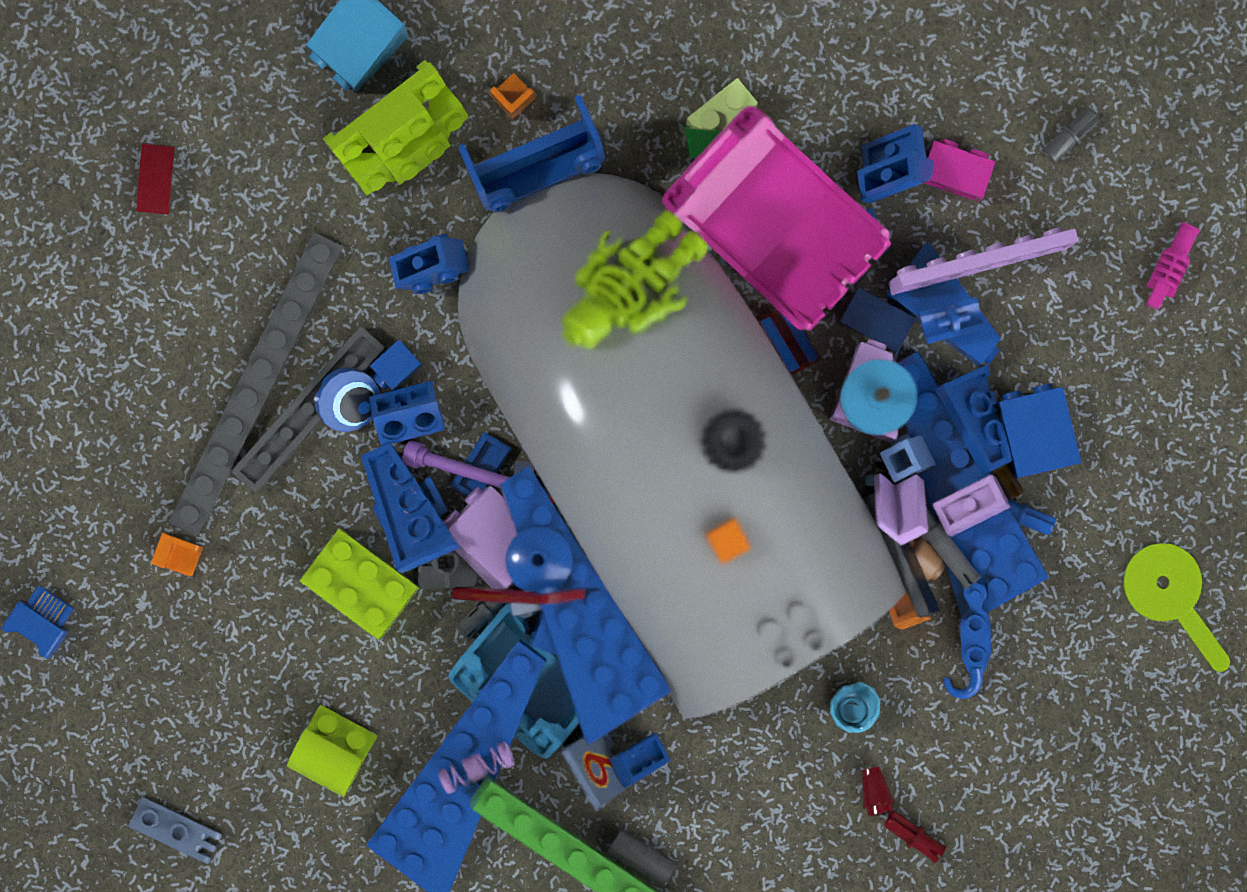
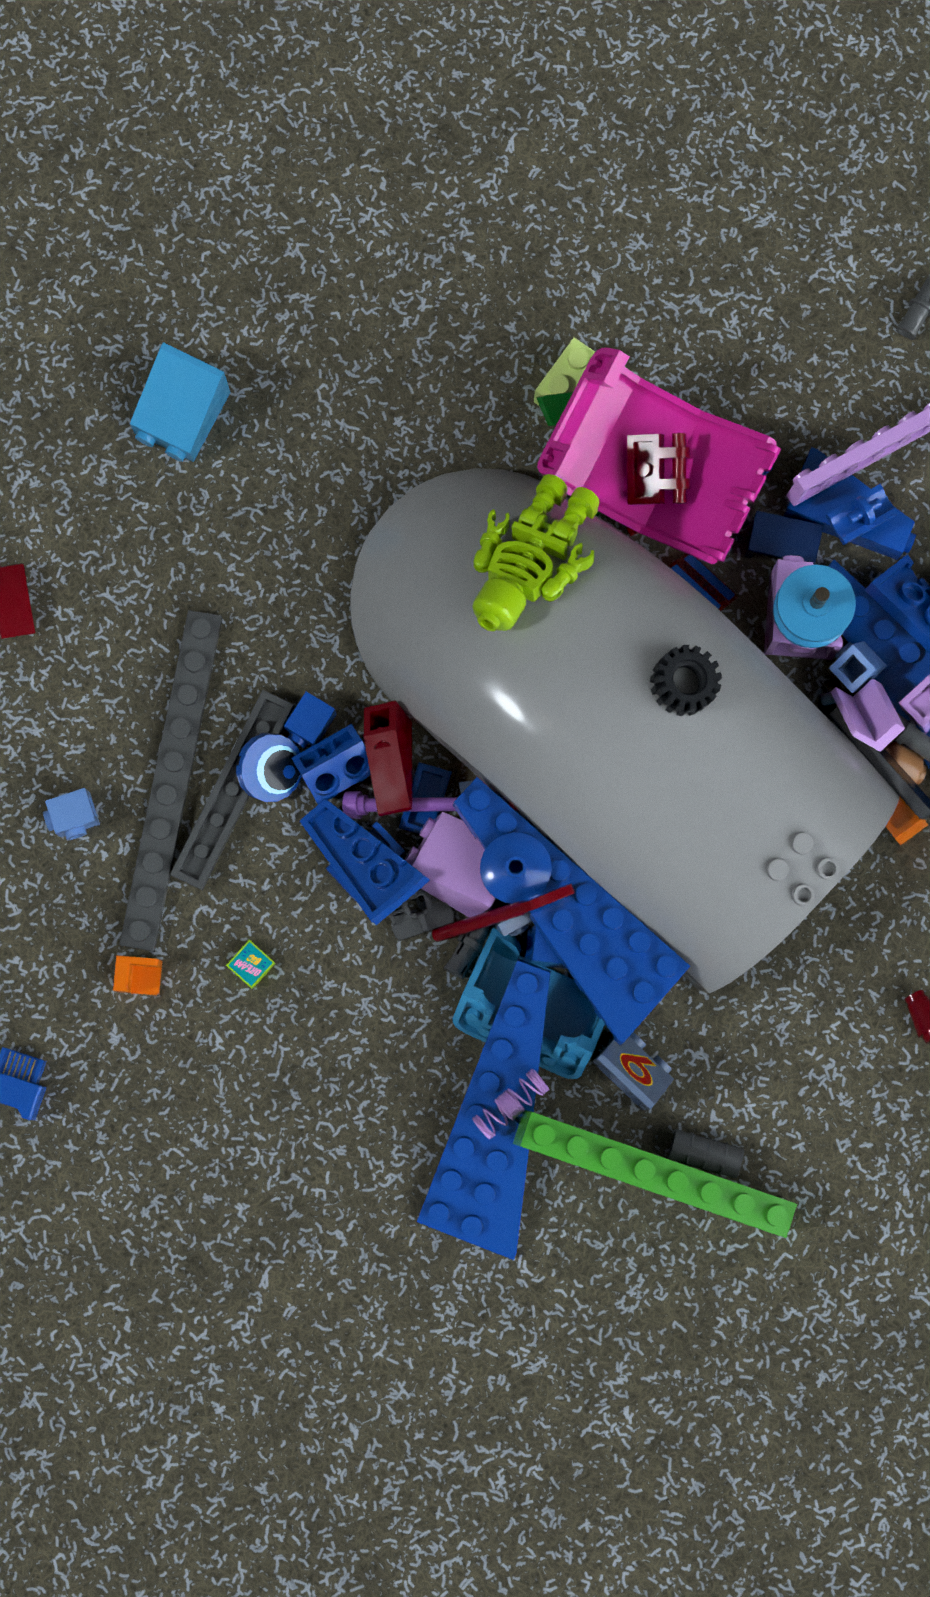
camera: 15 degrees left, 5 degrees down
(156, 391) = (71, 814): none -> medium blue brick
(173, 829) = (211, 1262): sand blue hinge -> none
(281, 572) = (250, 964): none -> teal tile
(331, 750) = (353, 1133): lime brick -> none
(359, 584) = (335, 951): lime brick -> none
(400, 131) = (249, 482): lime piece -> none
(428, 264) = (315, 607): blue brick -> none
(458, 420) = (389, 756): none -> dark red slope
(513, 96) = (352, 420): orange panel -> none
(537, 163) = (399, 474): blue windscreen -> none
(639, 760) = (675, 1051): blue plate -> none
(728, 540) = (709, 785): orange tile -> none
(767, 222) = (646, 469): none -> dark red plate
(855, 717) = (887, 943): medium azure hair -> none
(894, 164) = (755, 379): blue brick -> none
(959, 170) = (819, 371): dark pink brick -> none

